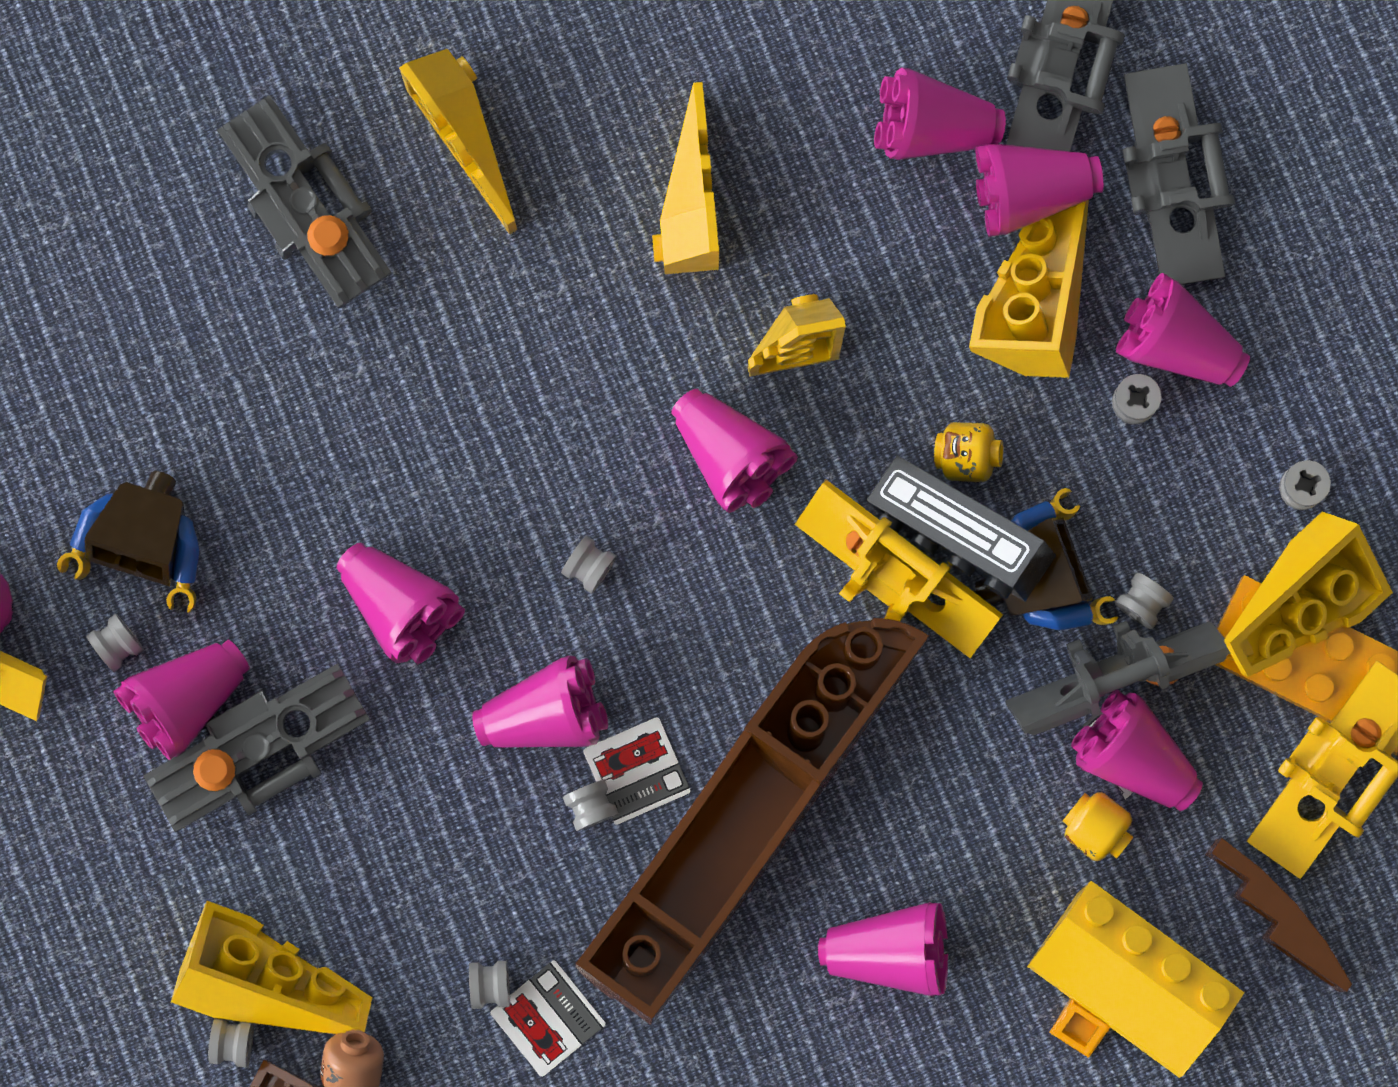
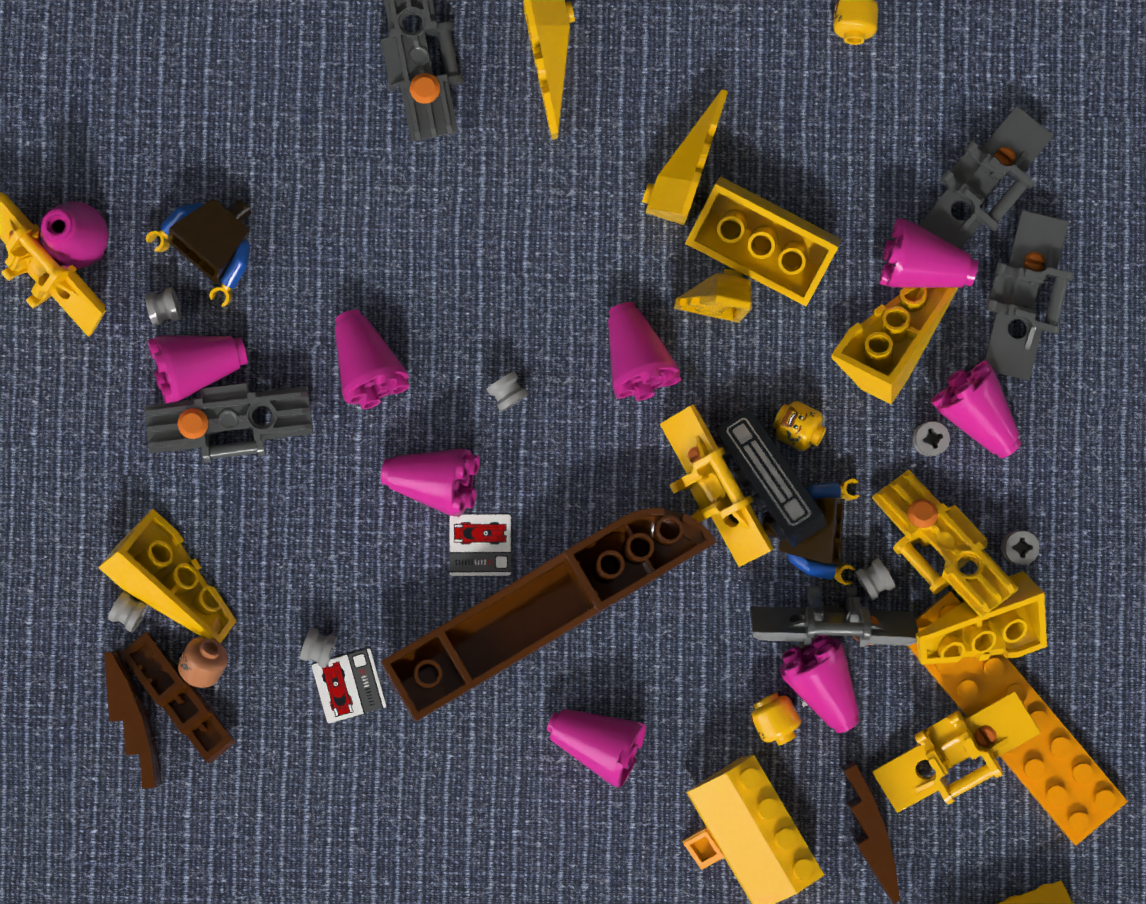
camera: 20 degrees right, 5 degrees up
(590, 805) = (438, 556): light grey wheel -> none
(824, 245) = (763, 241): none -> yellow slope
(933, 118) = (876, 184): dark pink cone -> none
(1216, 504) = (952, 535): none -> yellow piece

